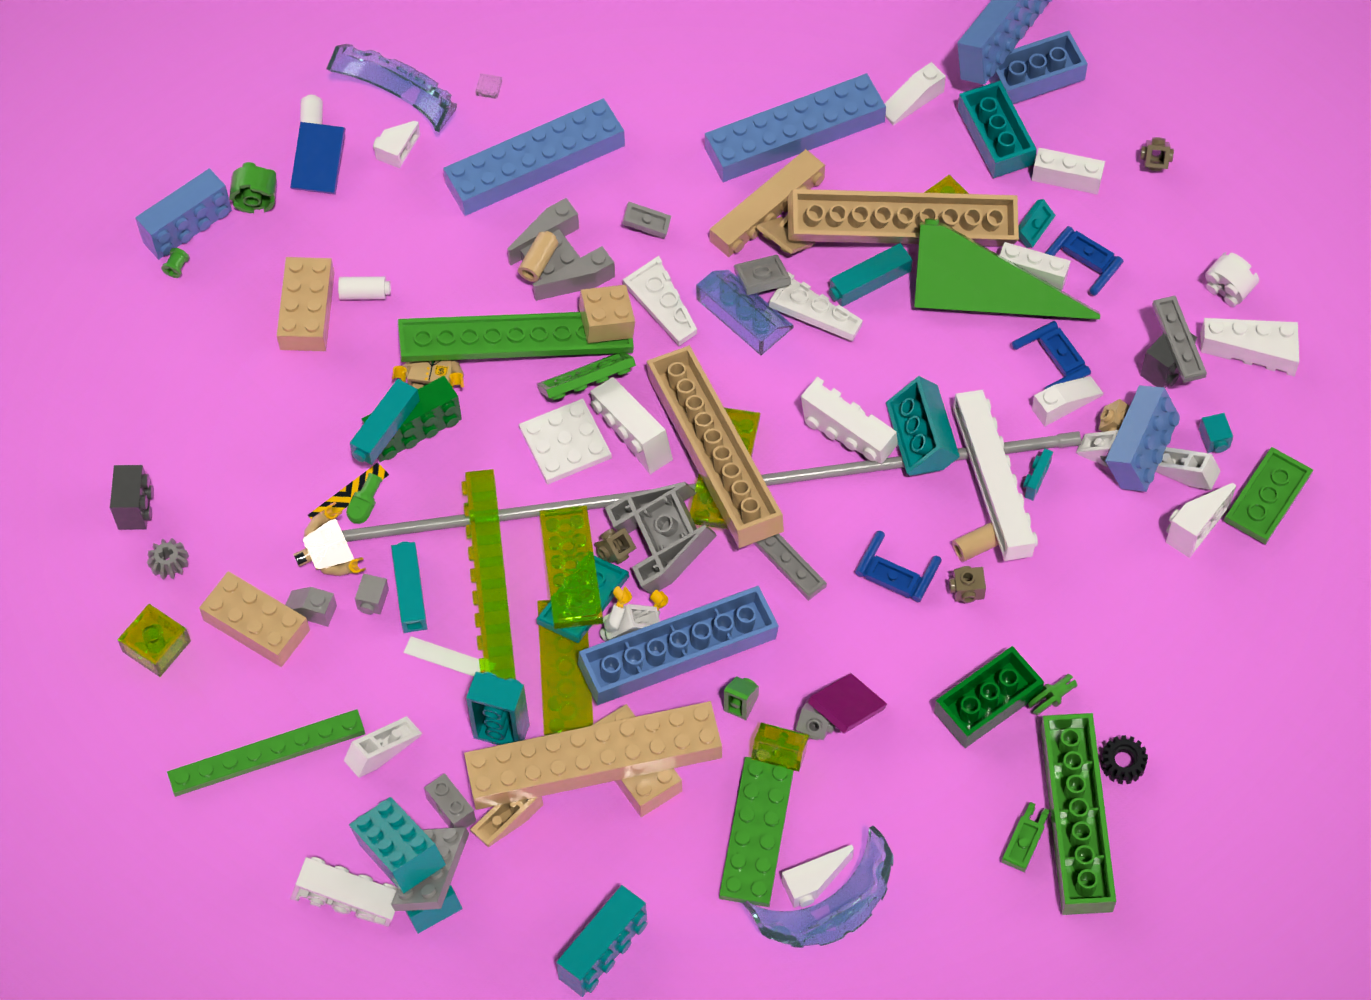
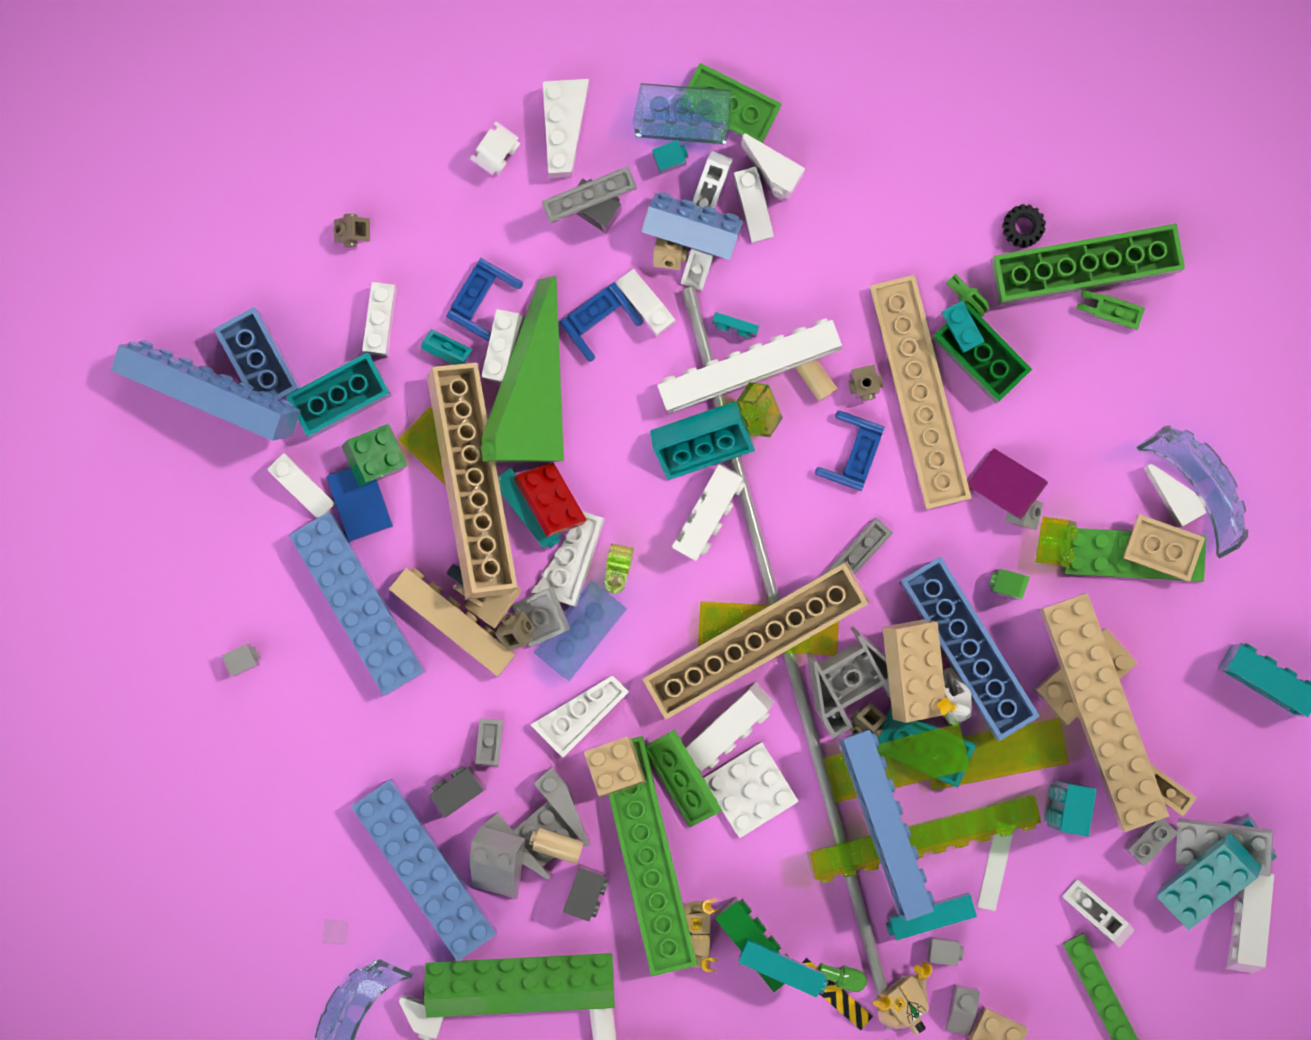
camera: 100 degrees left, 25 degrees up
(410, 217) = (519, 985): none -> bright green brick
(489, 280) = (584, 893): none -> dark grey brick
(510, 530) = (885, 825): none -> medium blue brick
(533, 206) = (496, 861): none -> light grey slope
(604, 185) = (456, 792): none -> dark grey brick
(665, 578) = (914, 669): none -> tan brick
(752, 245) = (515, 630): none -> dark tan brick
(754, 33) = (241, 659): none -> light grey brick
(760, 850) = (1163, 547): none -> tan plate
(804, 342) = (618, 566): none -> clear neon green piece
(877, 289) = (550, 499): none -> red plate
(893, 142) = (360, 509): none -> blue tile
(935, 150) = (374, 455): none -> green brick
(948, 477) = (759, 409): none -> clear neon green brick
(952, 638) = (920, 392): none -> tan plate
(1018, 671) = (962, 326): none -> teal plate
(1160, 503) = (753, 204): none -> white slope
(1259, 444) = (682, 113): none -> clear light blue slope

